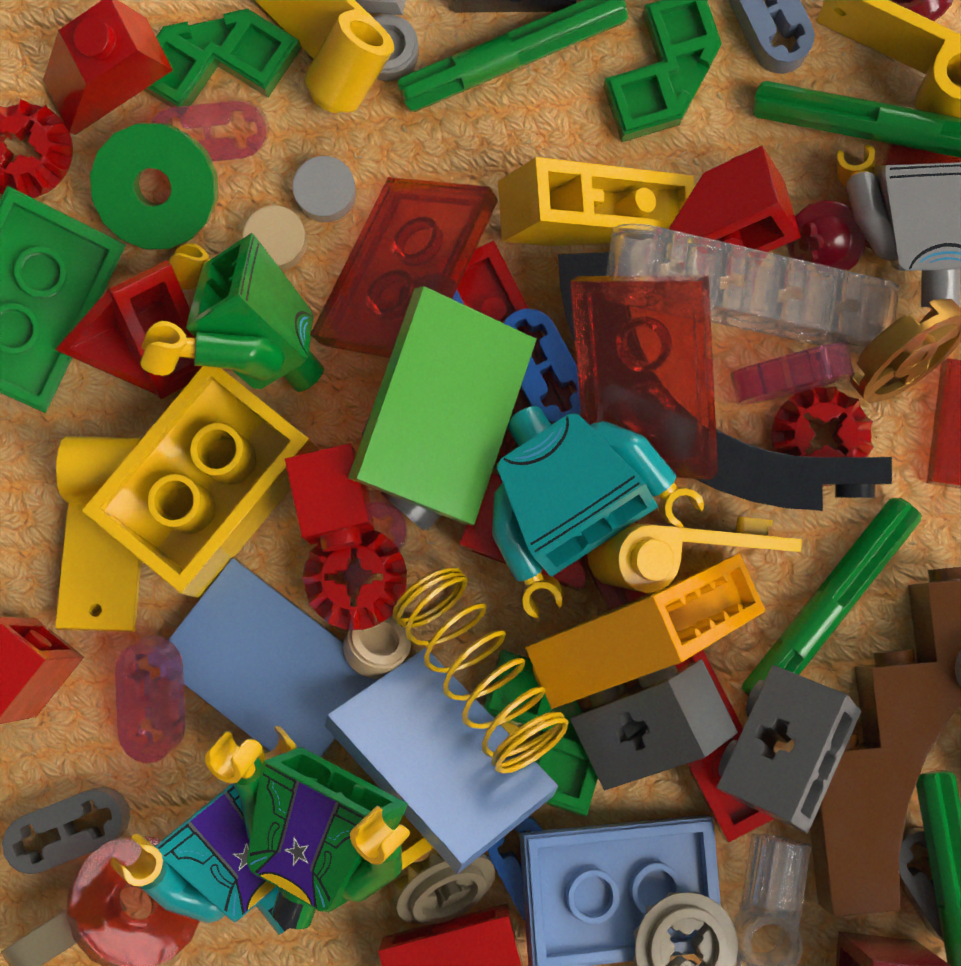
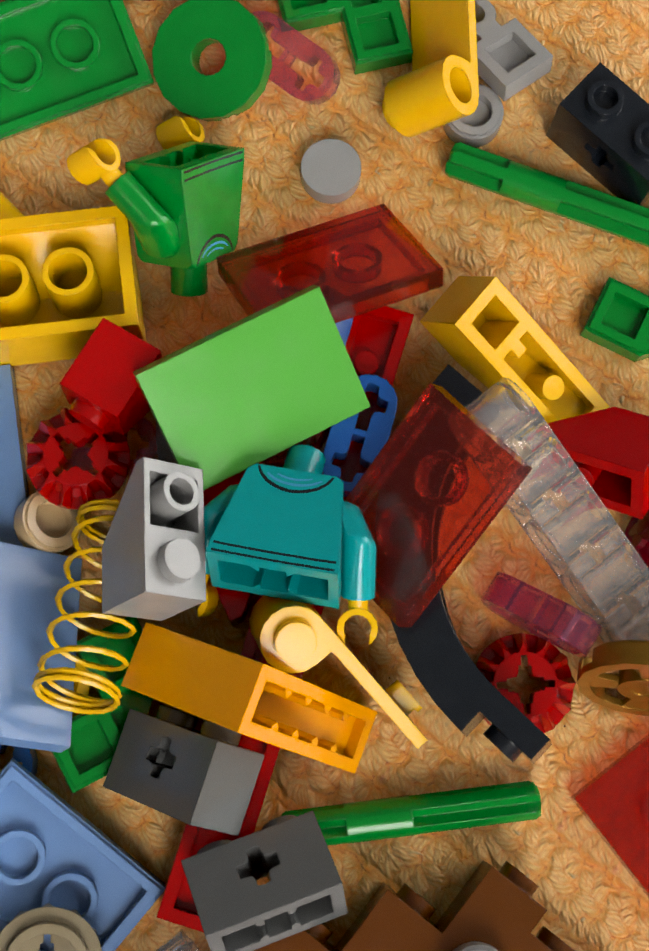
camera: 35 degrees right, 5 degrees down
(117, 324) = (80, 120): red slope -> none
(279, 233) = (265, 173): tan tile -> none
(486, 585) = (156, 544): none -> light grey slope

